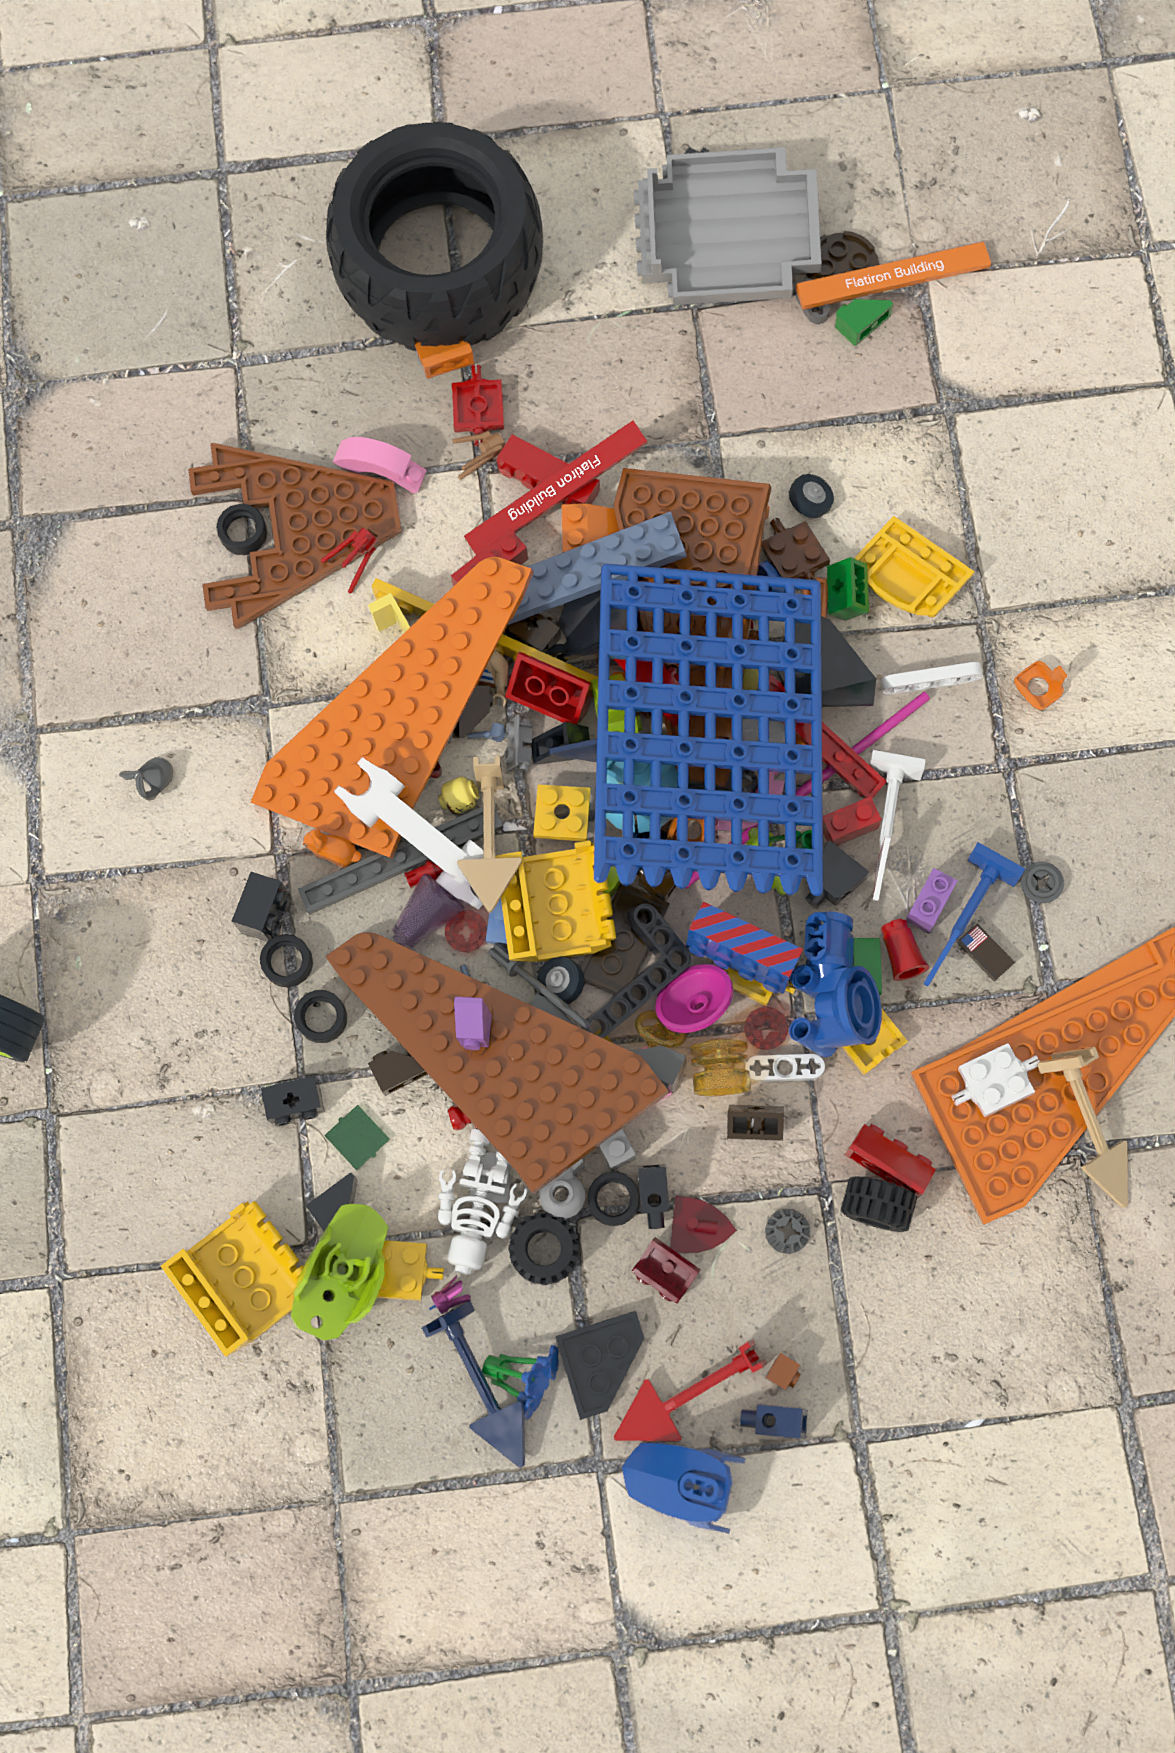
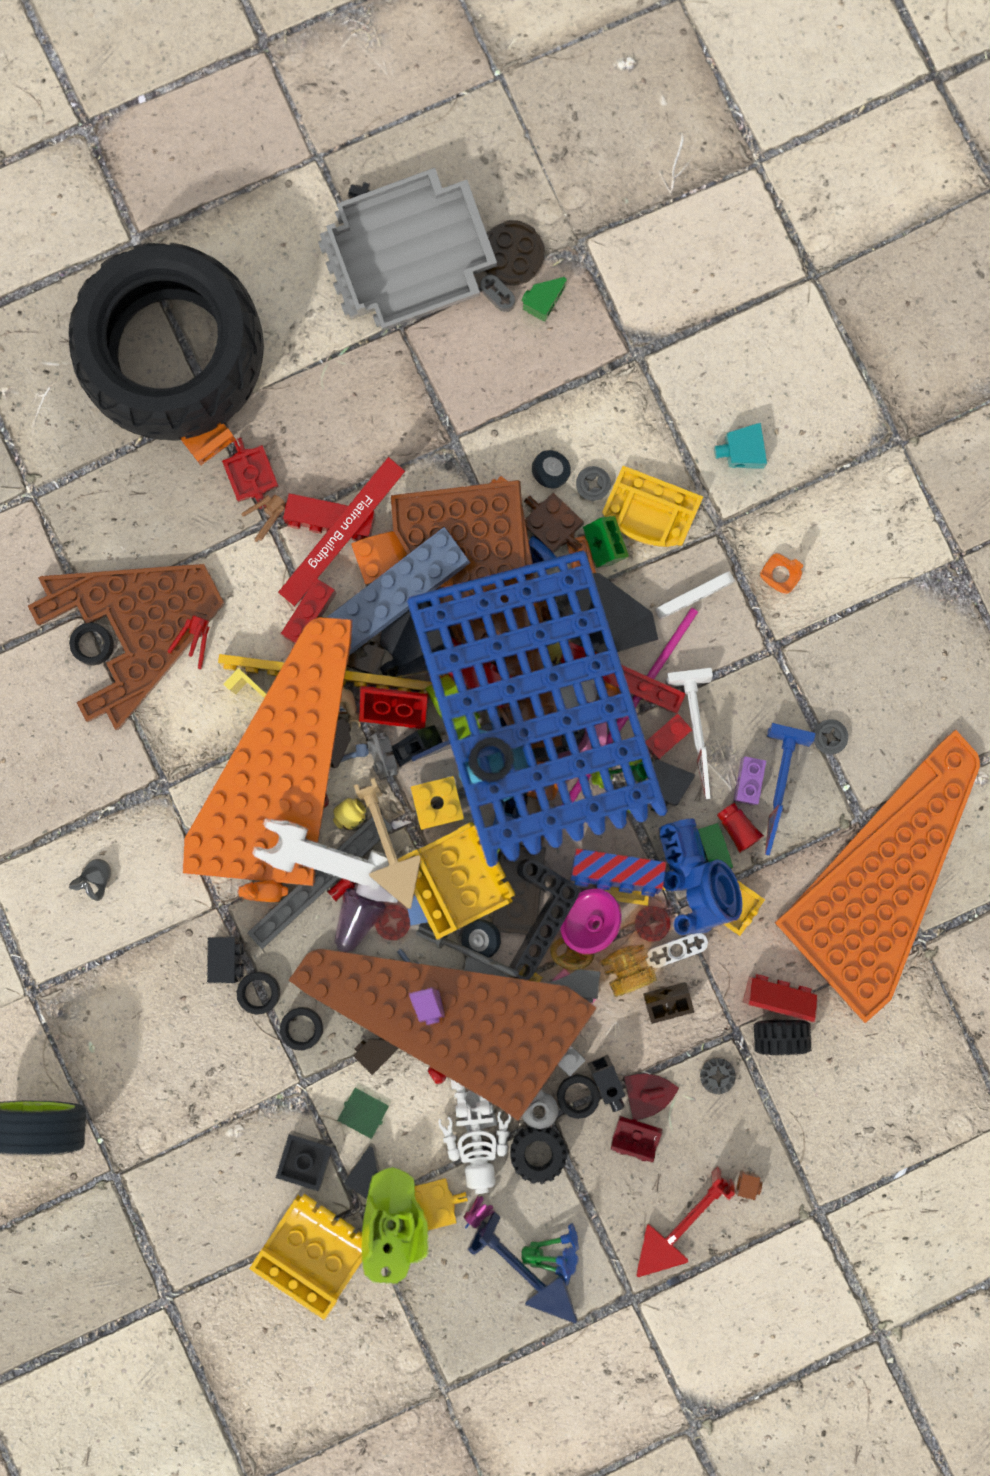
camera: 25 degrees left, 10 degrees up
(270, 1165) = (304, 1160): none -> black brick
(278, 1096) = (290, 1106): black brick -> none
(378, 457) = (186, 549): bright pink arch -> none
(598, 1360) = (607, 1222): black plate -> none
(640, 740) = (508, 757): none -> black tyre
(665, 1476) = (689, 1294): blue piece -> none
(789, 1421) = (763, 1219): dark blue torso -> none
(854, 516) = (603, 481): none -> dark grey gear
(893, 275) = (558, 251): orange tile -> none
(985, 952) = (803, 807): dark brown tile -> none
(996, 1080) = (842, 909): white plate -> none
(1037, 537) = (743, 448): none -> teal torso
(1110, 1166) = (947, 946): tan piece -> none

